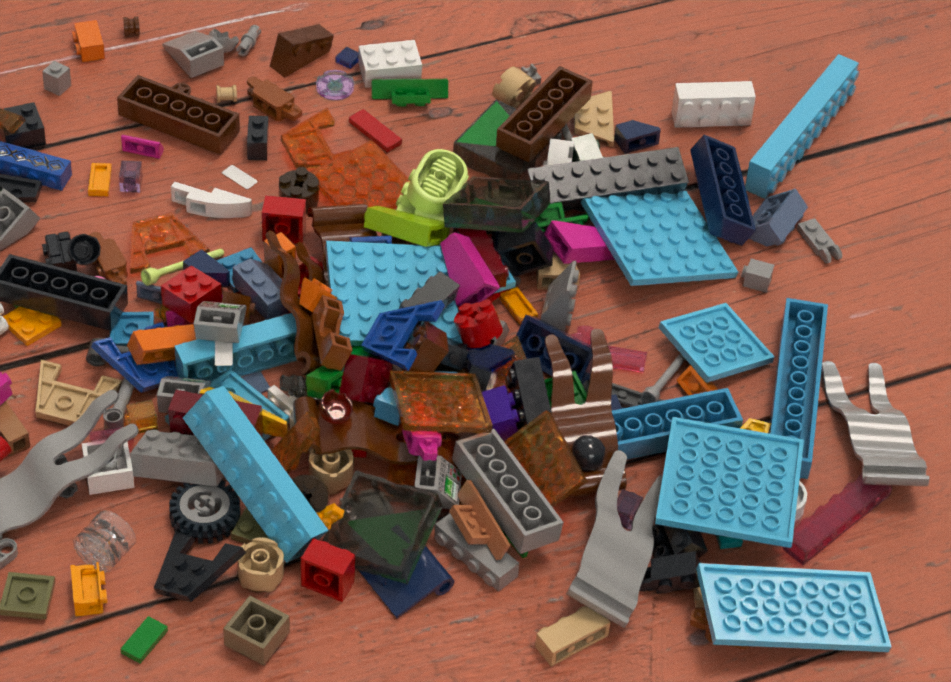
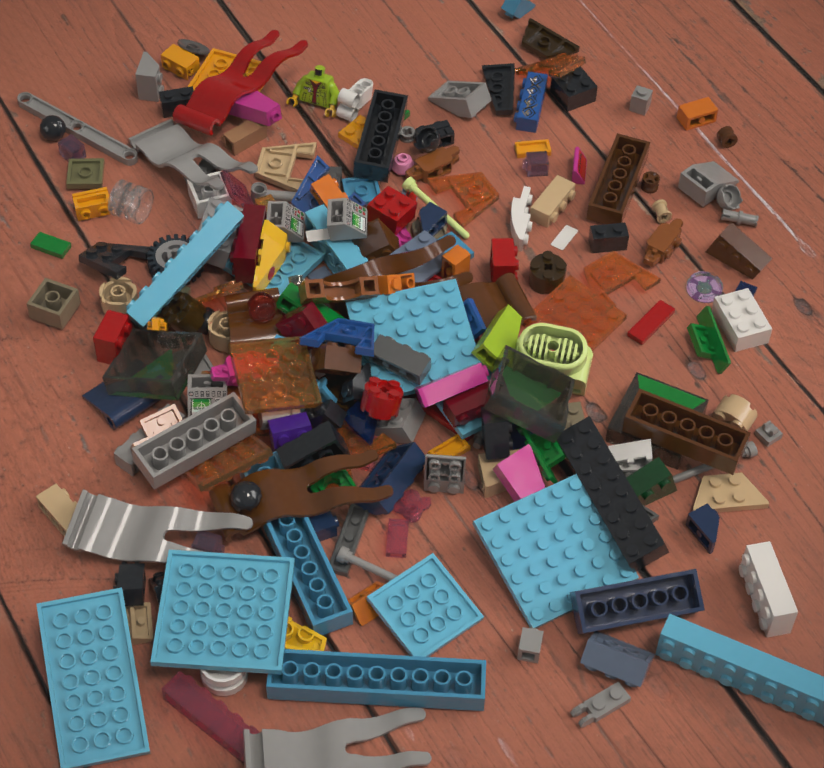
camera: 85 degrees right, 5 degrees up
(189, 170) = (552, 201): none -> tan brick

